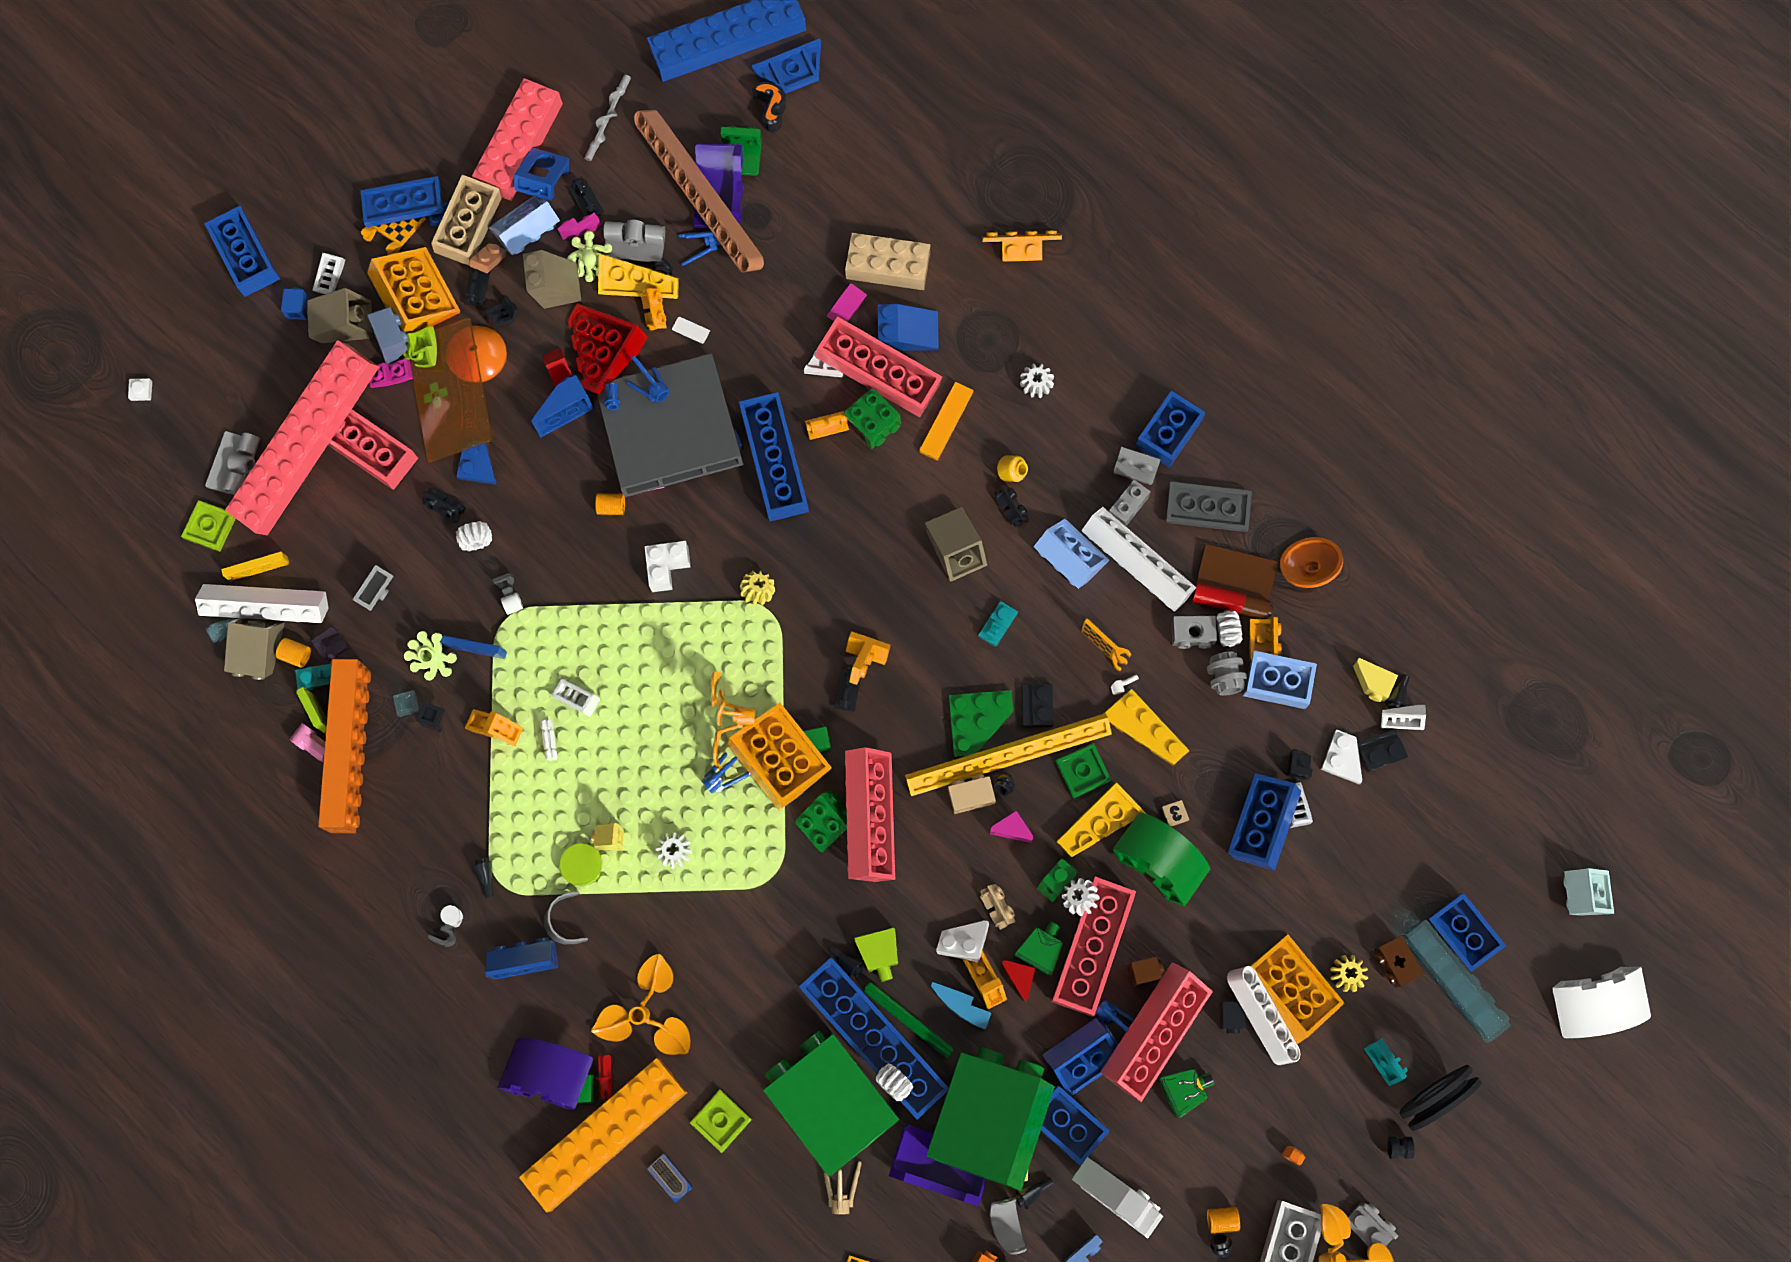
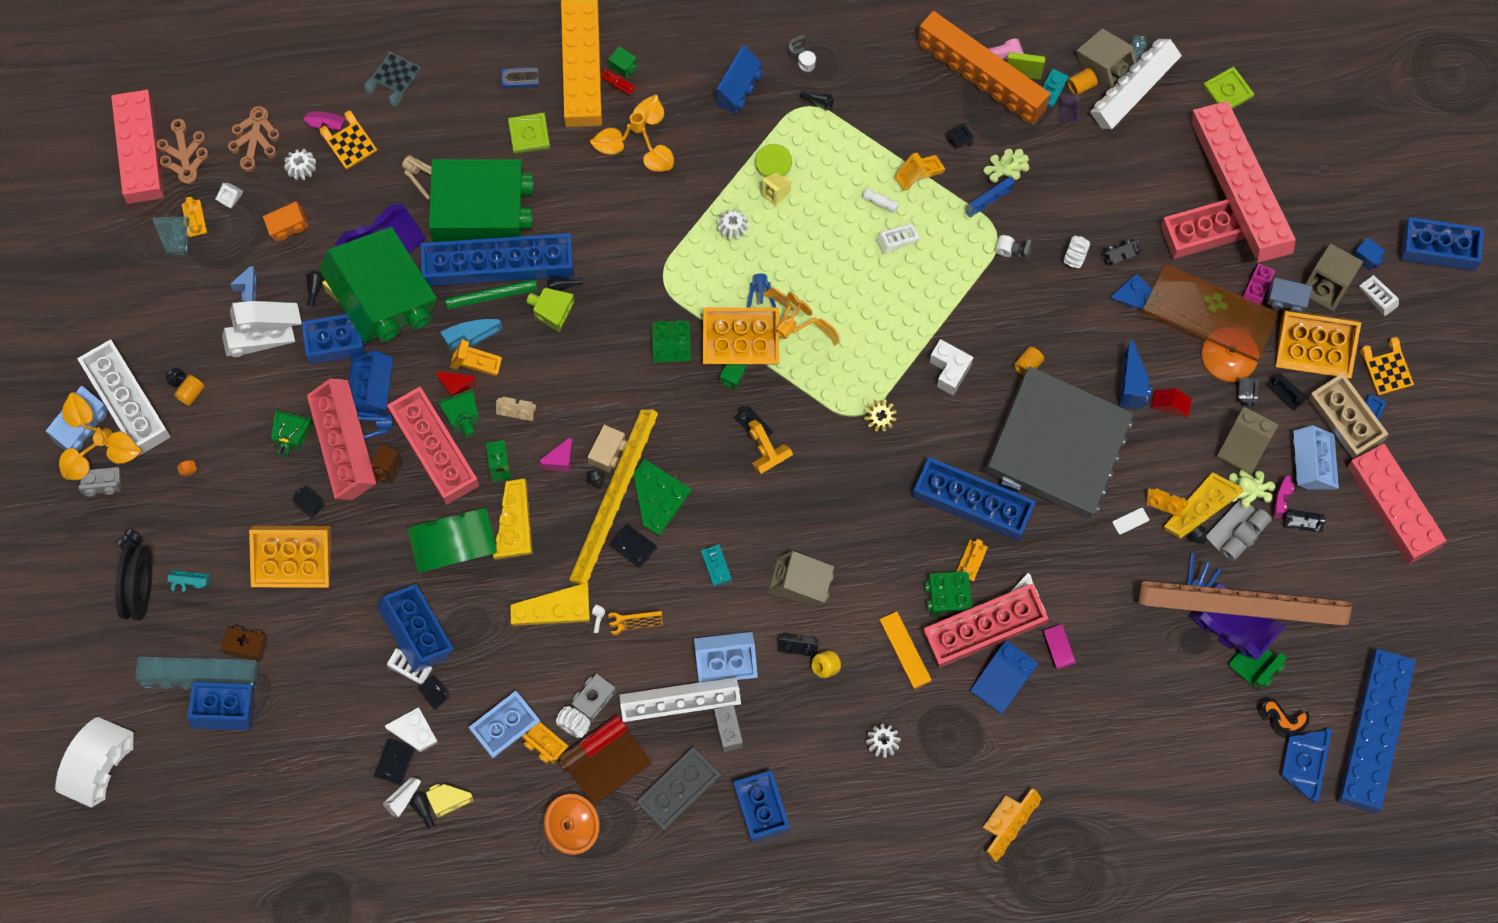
camera: 125 degrees right, 5 degrees down
(140, 389) = (1378, 110): white plate -> none
(233, 462) = (1267, 135): light grey panel -> none
(255, 566) = (1169, 98): yellow tile -> none
(373, 588) = (1089, 161): light grey brick -> none
(401, 201) = (1402, 383): blue plate -> none
(406, 703) = (985, 129): clear light blue plate -> none
(422, 347) = (1261, 315): lime brick -> none
(488, 258) = (1303, 410): nougat plate -> none
(537, 185) = (1340, 480): blue panel -> none
(545, 1071) = (649, 43): dark purple panel -> none
(548, 927) = (731, 116): light grey piece -> none
(602, 121) = (1368, 592): light grey piece -> none
(603, 345) = (1161, 445): red slope -> none
(612, 401) = (1111, 414): blue pin -> none
(657, 389) = (1090, 447): blue plant -> none
(869, 815) = (648, 365): coral brick -> none
(887, 261) = (1072, 704): tan brick -> none
(894, 1082) = (454, 240): white gear -> none
(964, 941) = (510, 366): white wing -> none
(1006, 1226) = (303, 254): light grey piece -> none
(1083, 771) = (559, 540): green tile -> none
(1088, 896) = (470, 454): white gear -> none
(1136, 466) = (753, 759): light grey bracket -> none
(1175, 813) = (475, 578): tan tile -> none
(1227, 675) = (541, 692): light grey piece -> none
(1263, 1015) = (297, 515): white beam -> none
(1351, 982) = (260, 600): light yellow gear -> none
(1588, 892) = (170, 820): light aqua slope -> none

